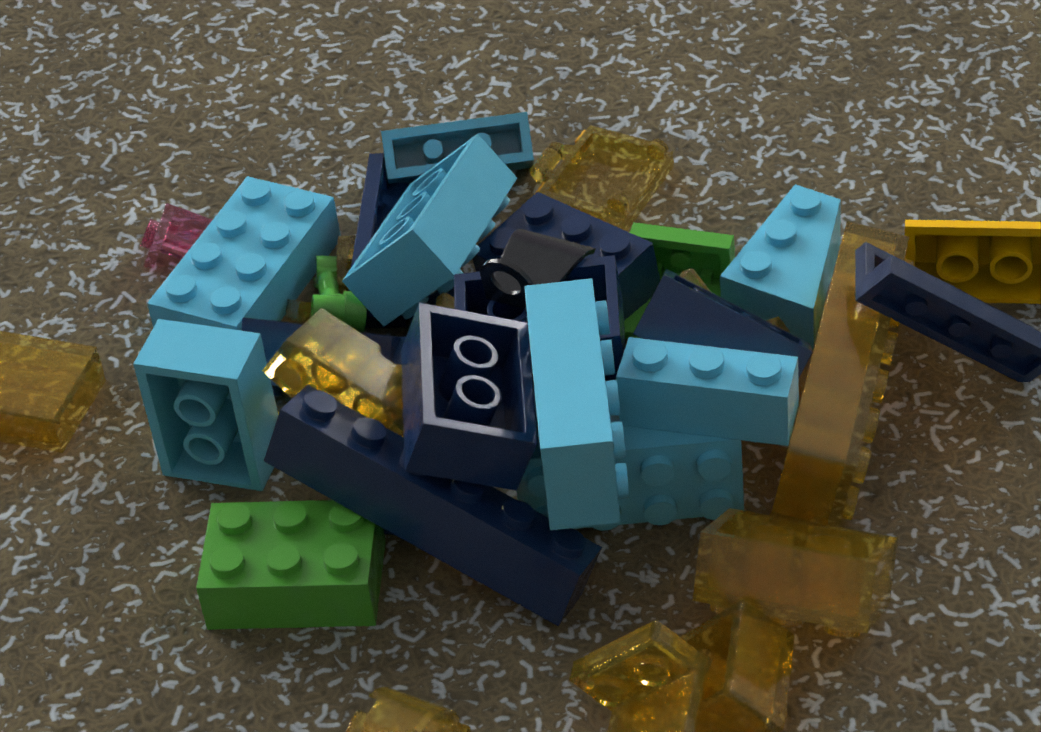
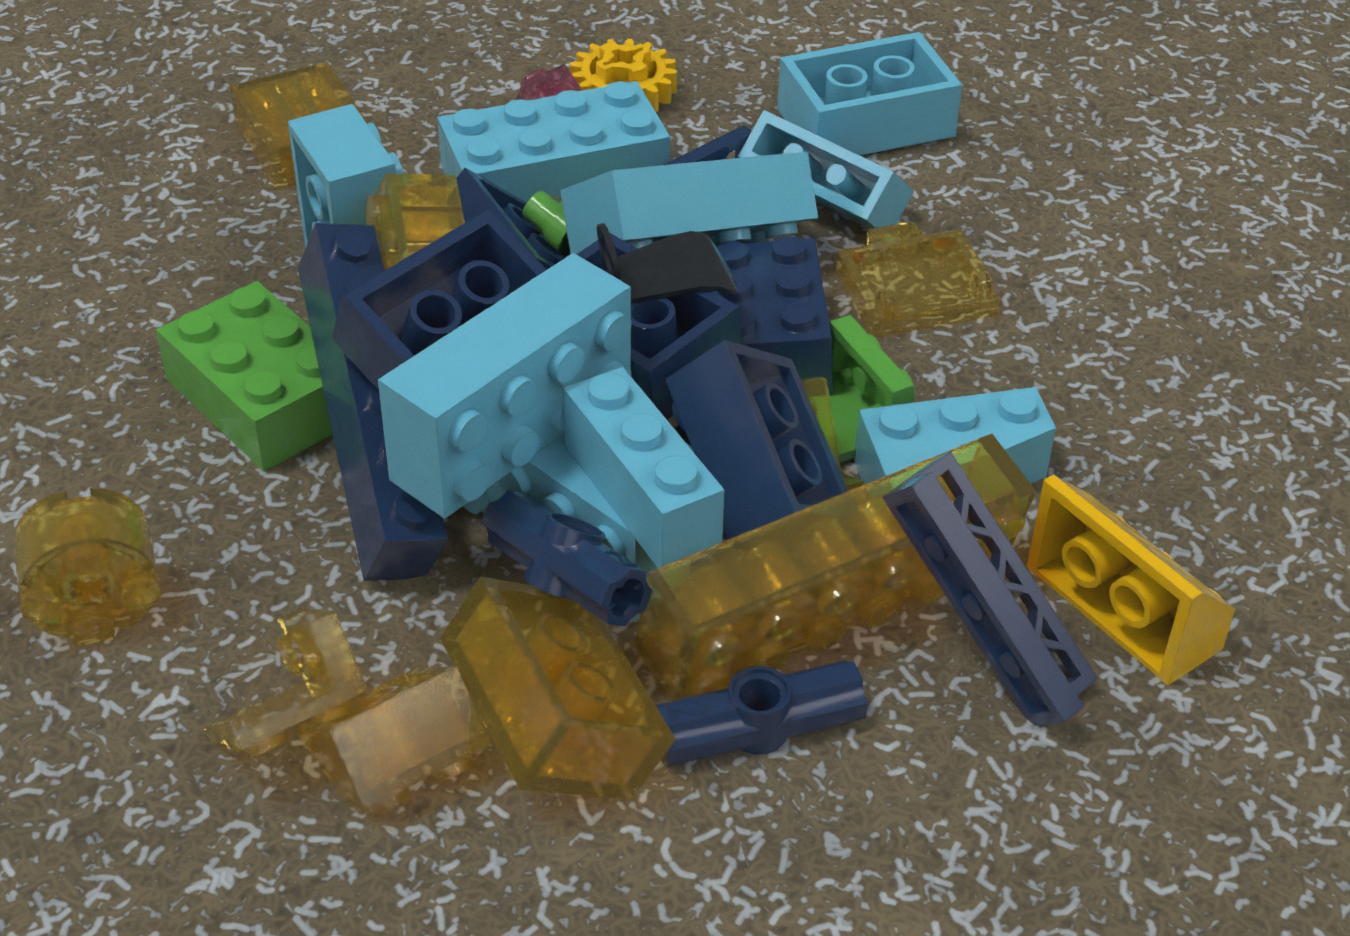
camera: 40 degrees right, 0 degrees up
(201, 180) = (627, 64): none -> yellow gear
(404, 74) = (871, 94): none -> medium azure brick
(712, 487) = (567, 557): none -> dark blue piece
(904, 481) = (763, 710): none -> dark blue piece

